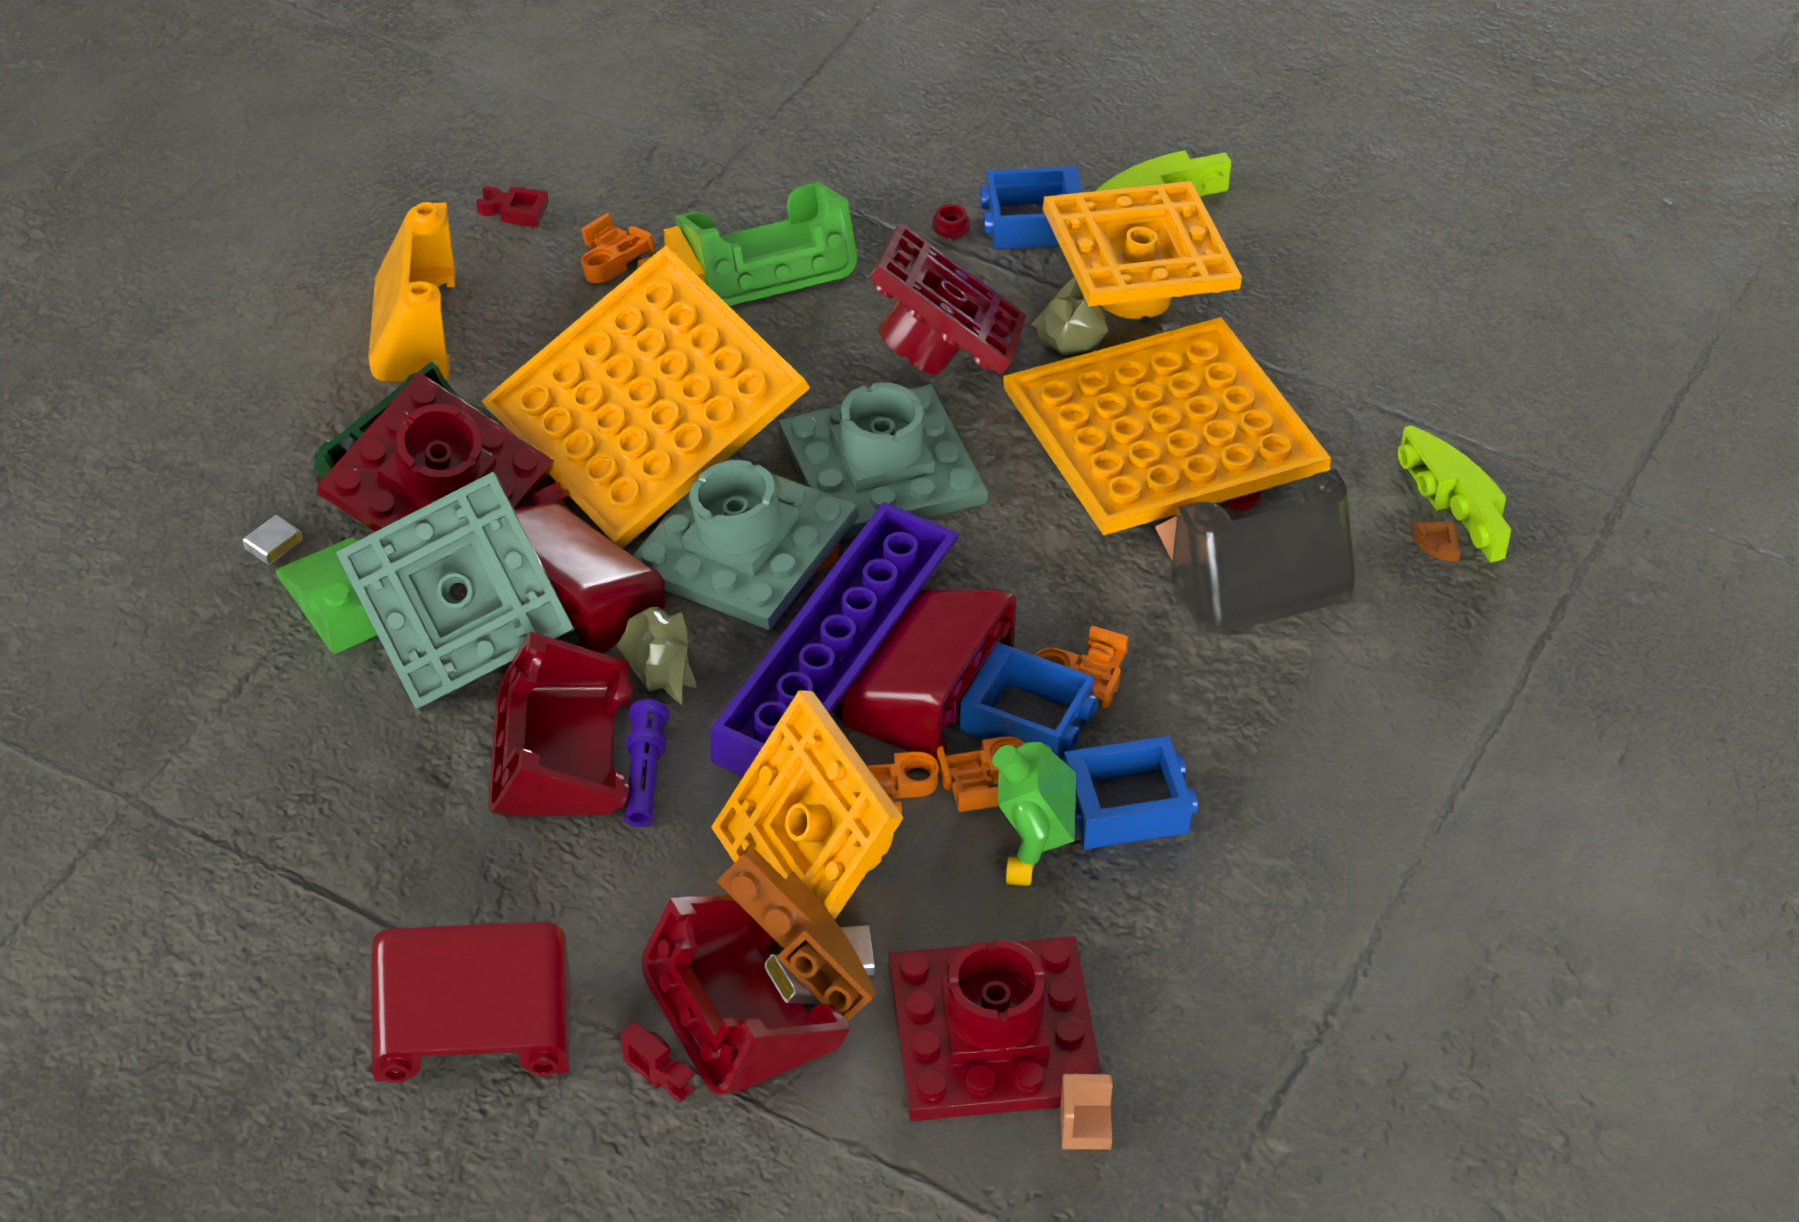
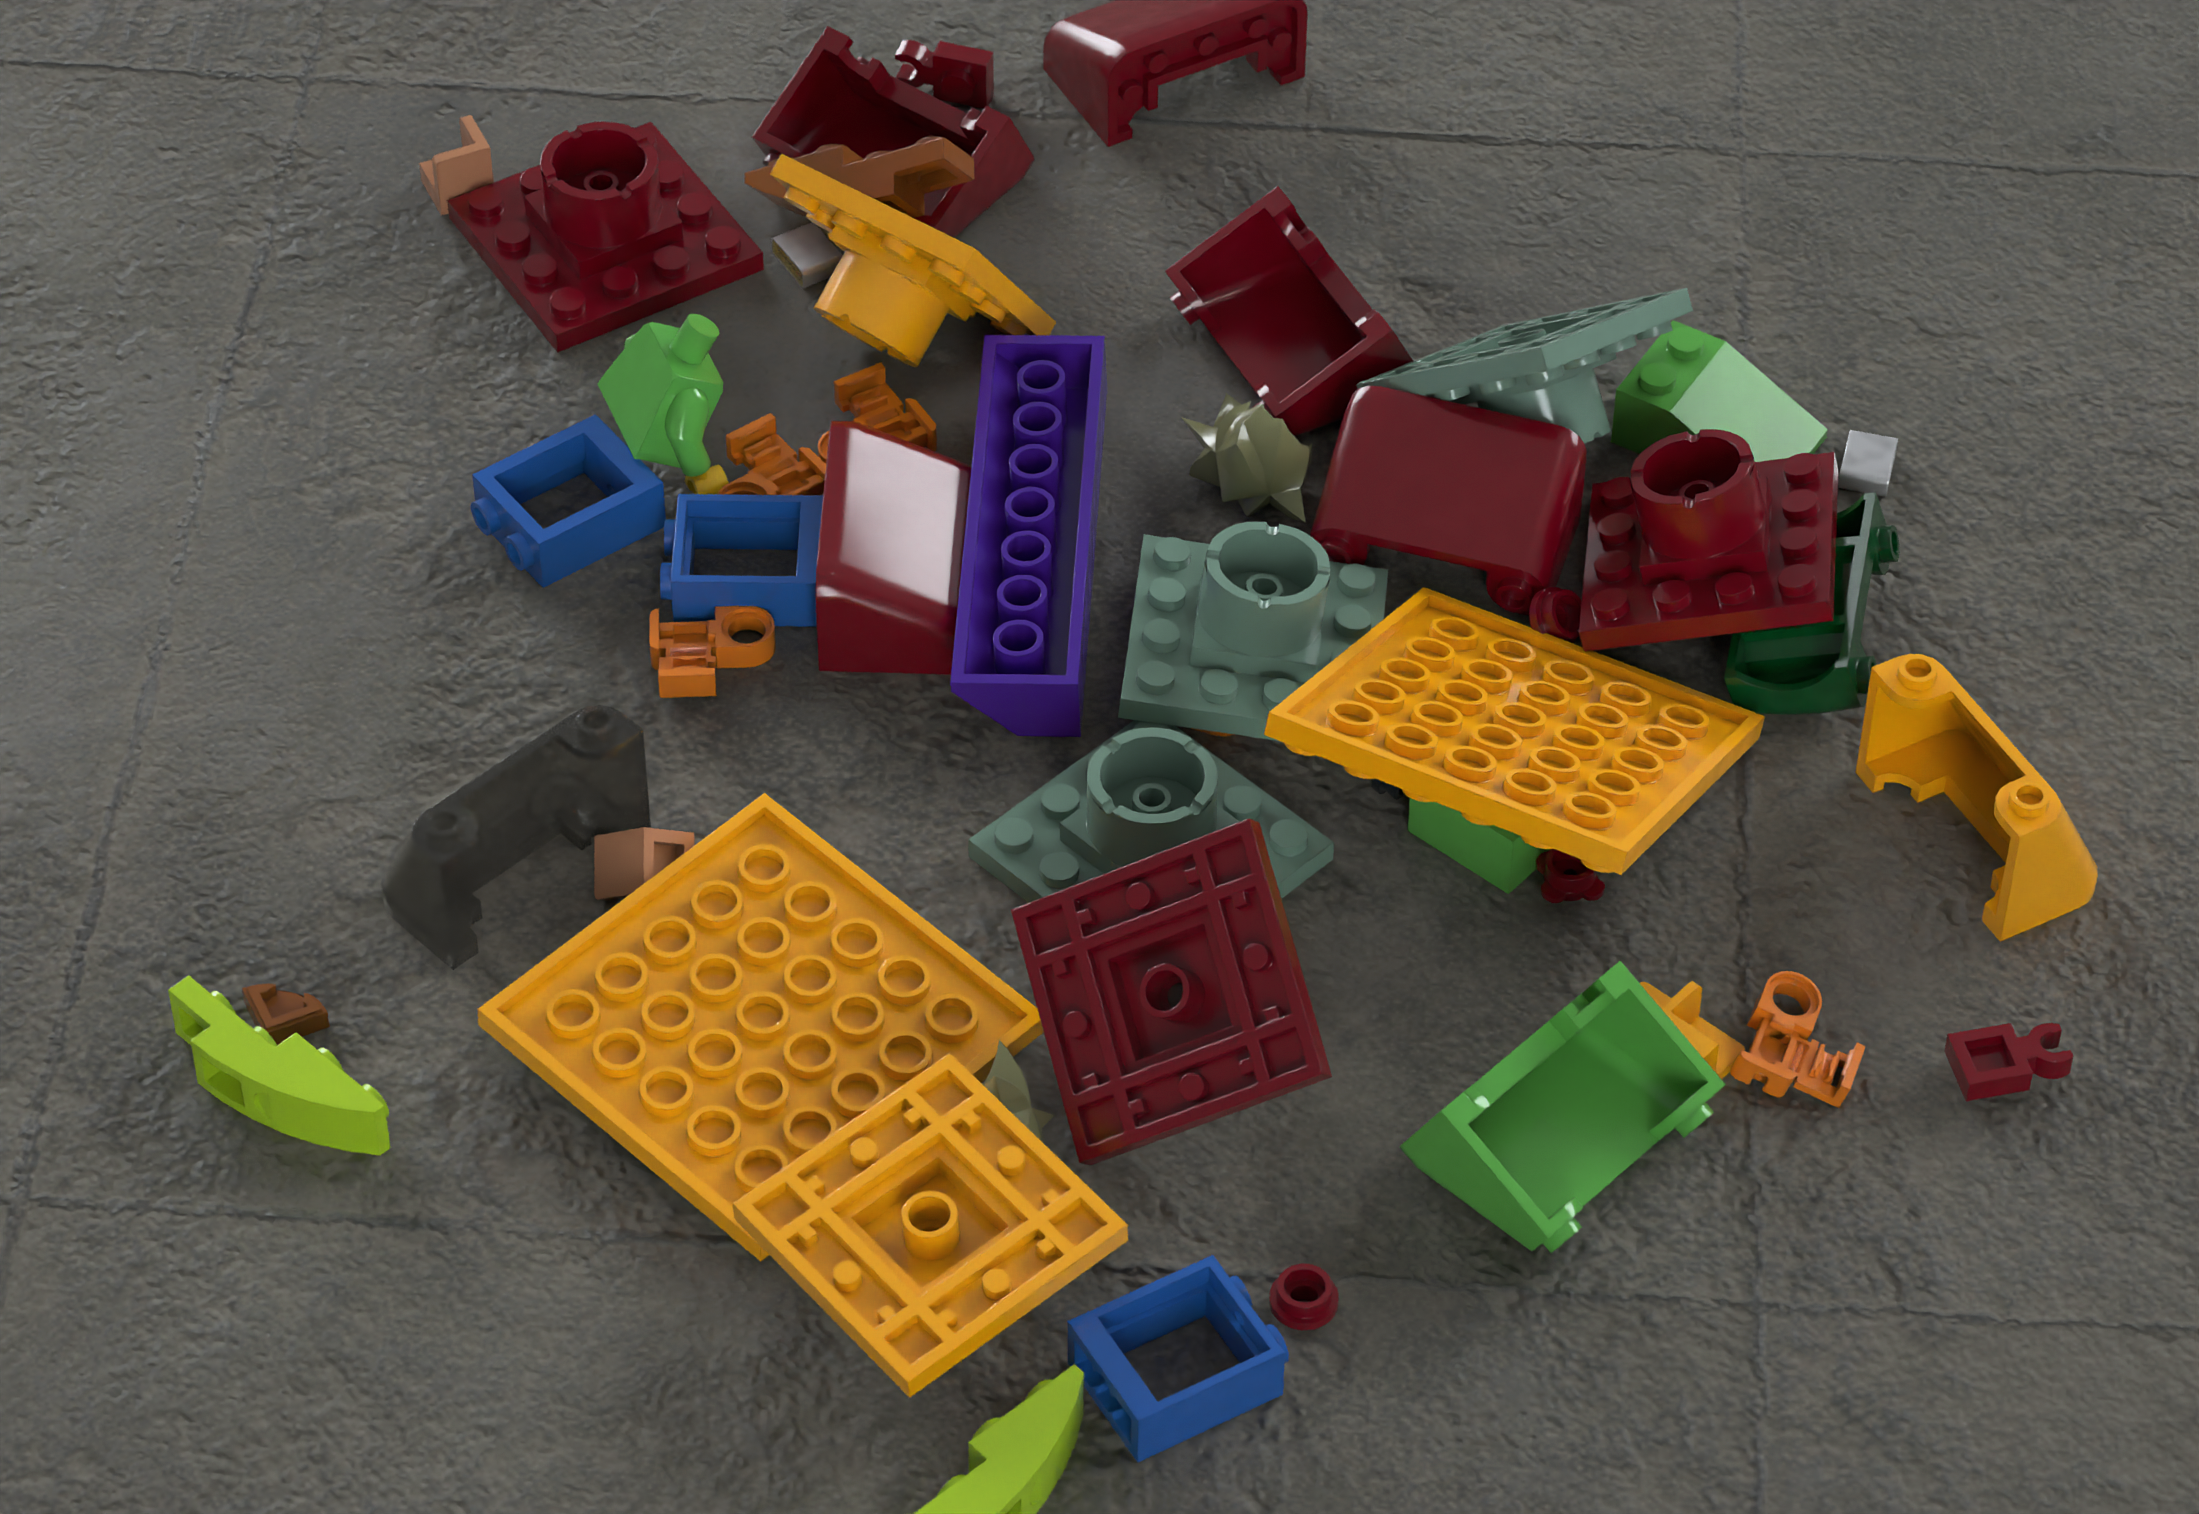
camera: 155 degrees right, 0 degrees up
(640, 803) = (1193, 367): dark purple pin -> none

